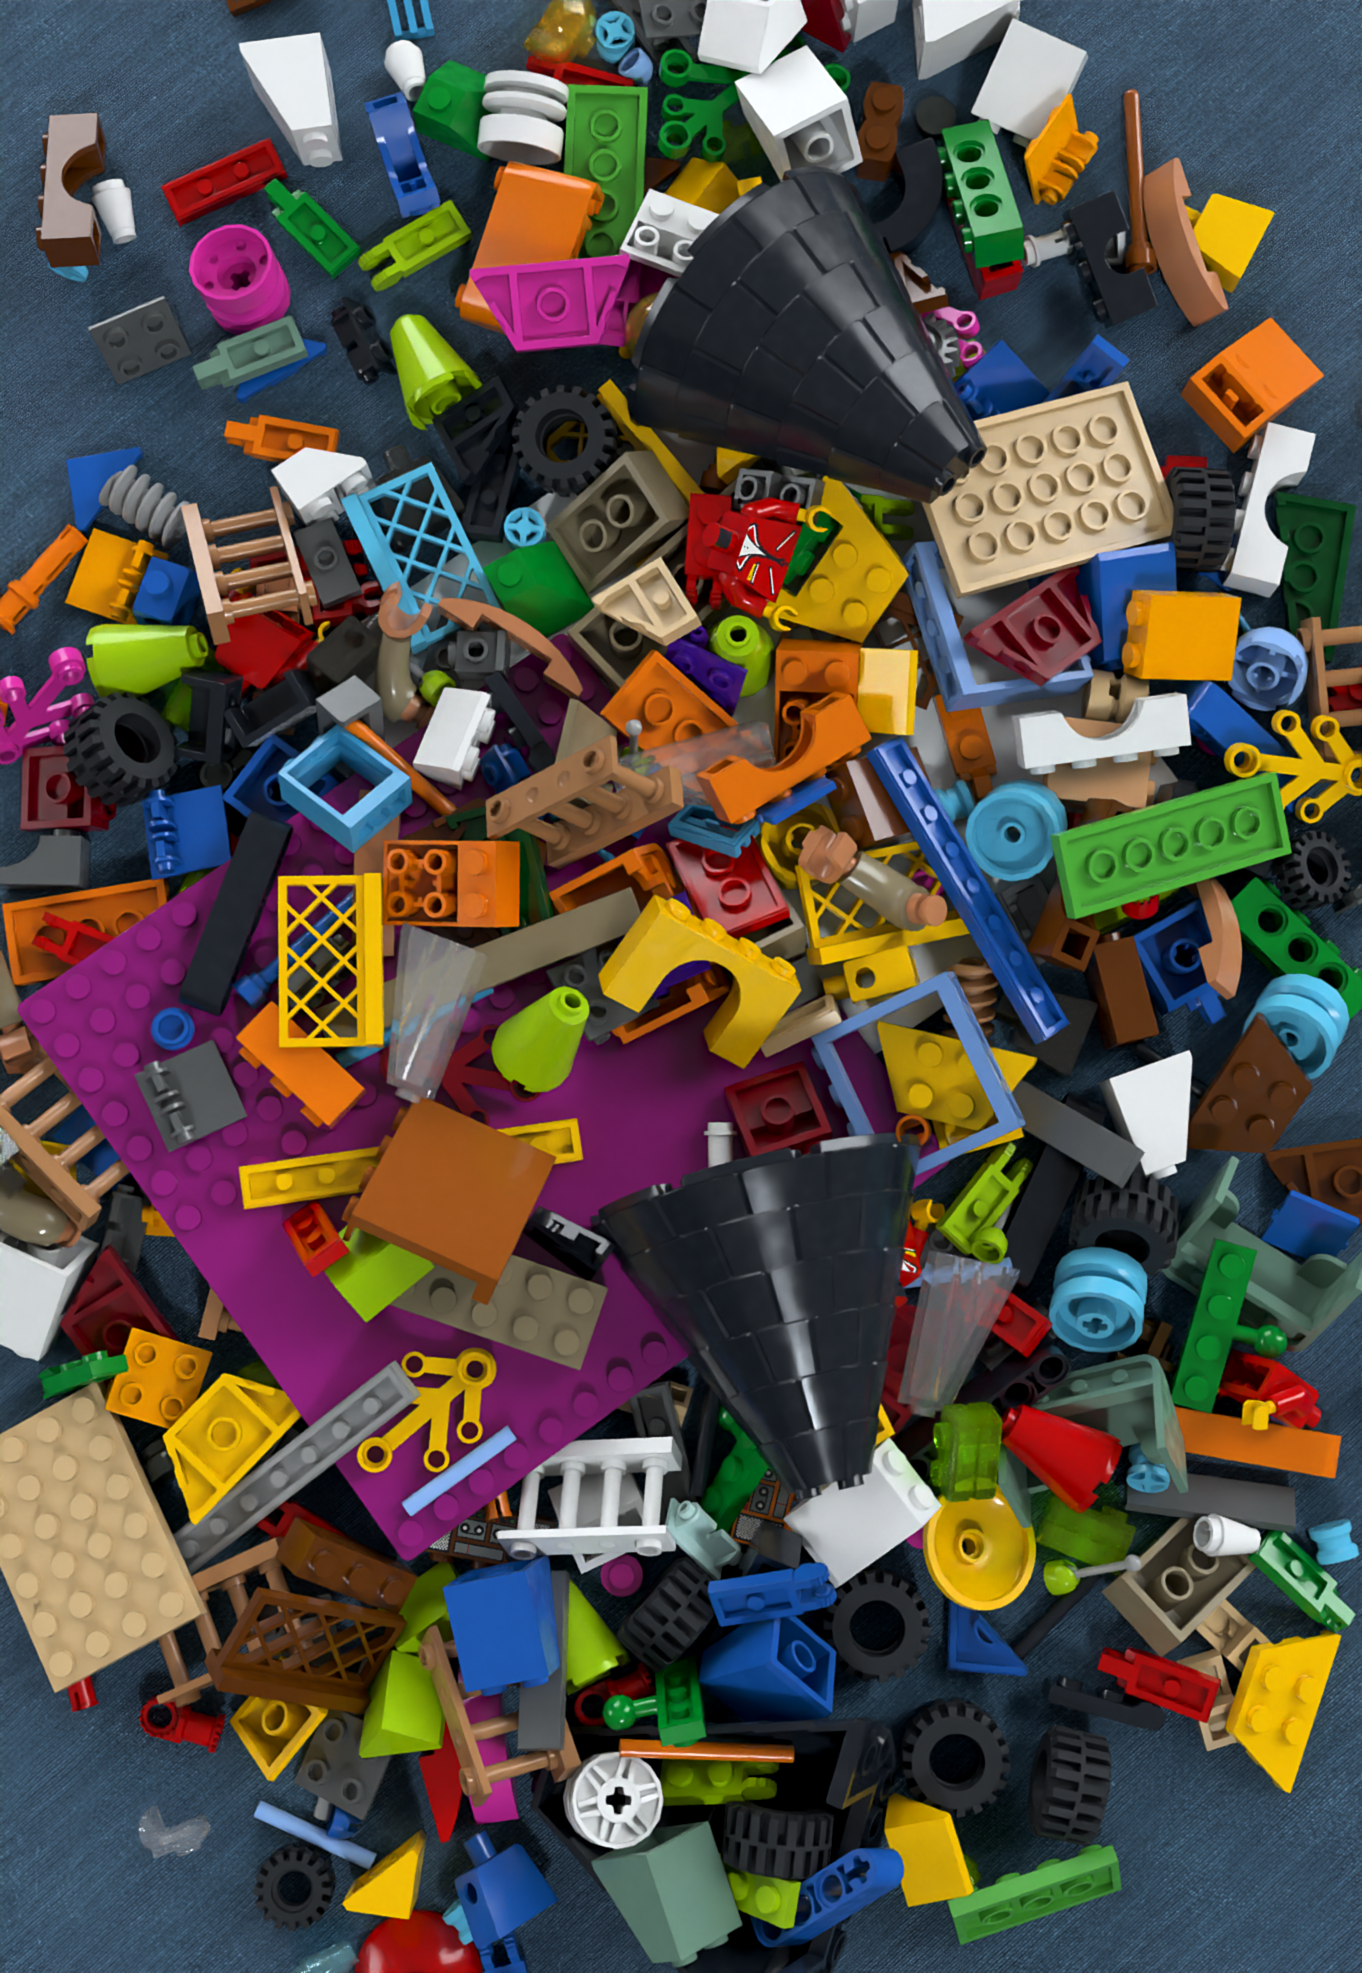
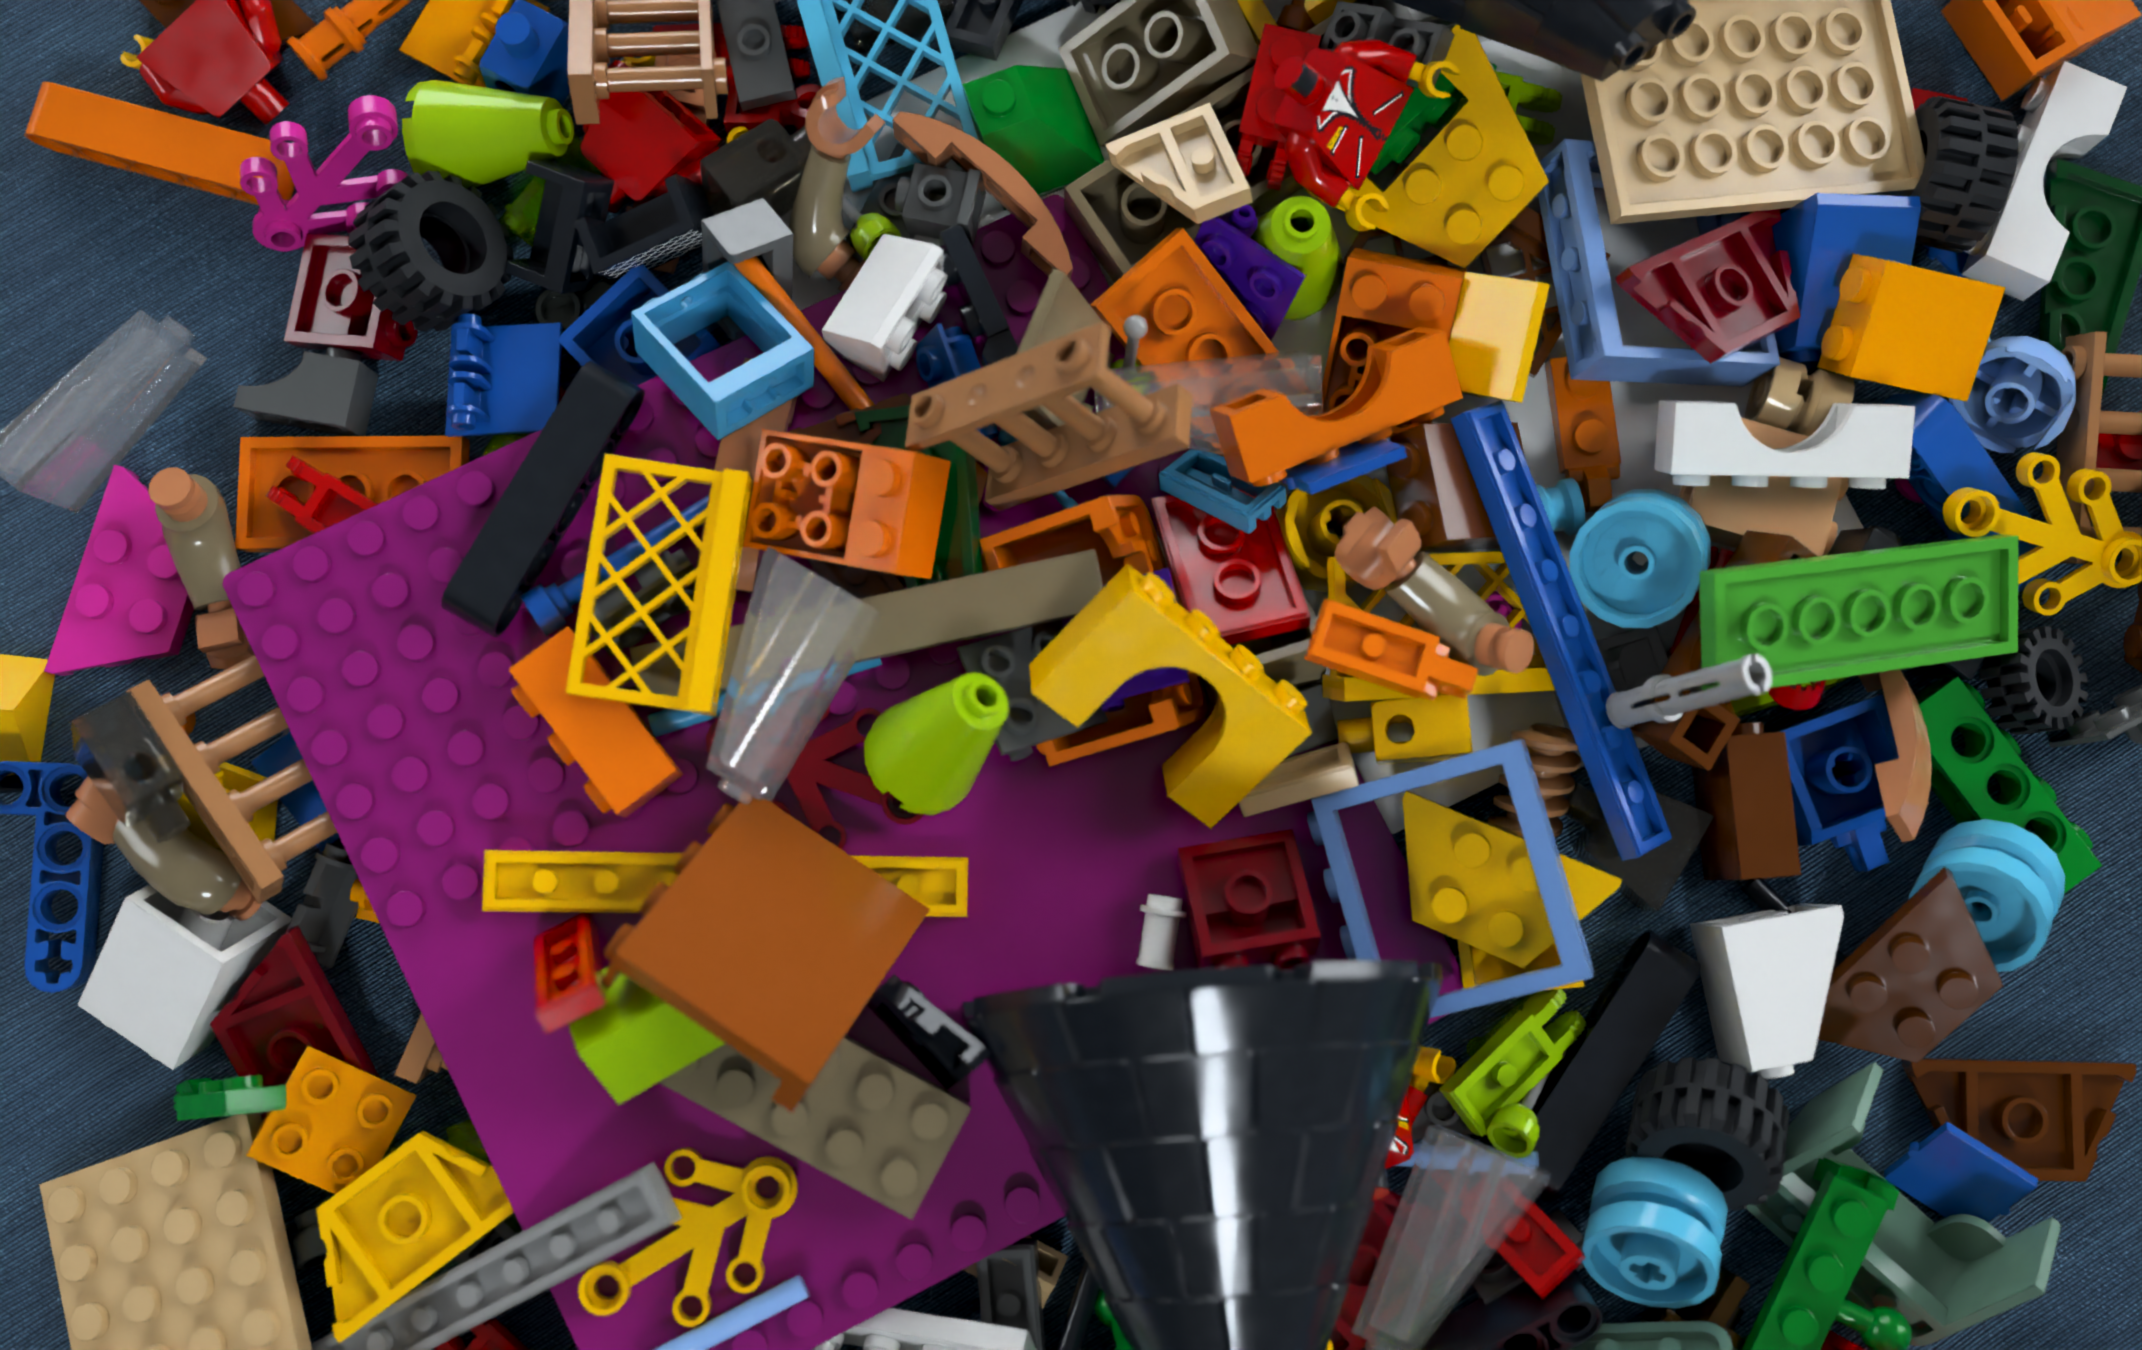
camera: 10 degrees right, 0 degrees up
(172, 1028) = (428, 643): blue plate -> none
(190, 1095) = (436, 739): dark grey hinge -> none
(524, 522) = (1028, 35): medium azure wheel -> none
(845, 926) = (1386, 653): none -> orange hinge
(913, 1121) = (1427, 938): orange hinge -> none
(1076, 1135) = (1665, 1000): dark grey tile -> none
(1082, 906) = (1735, 679): none -> light grey pin
(1247, 1241) = (1858, 1176): none -> green tile

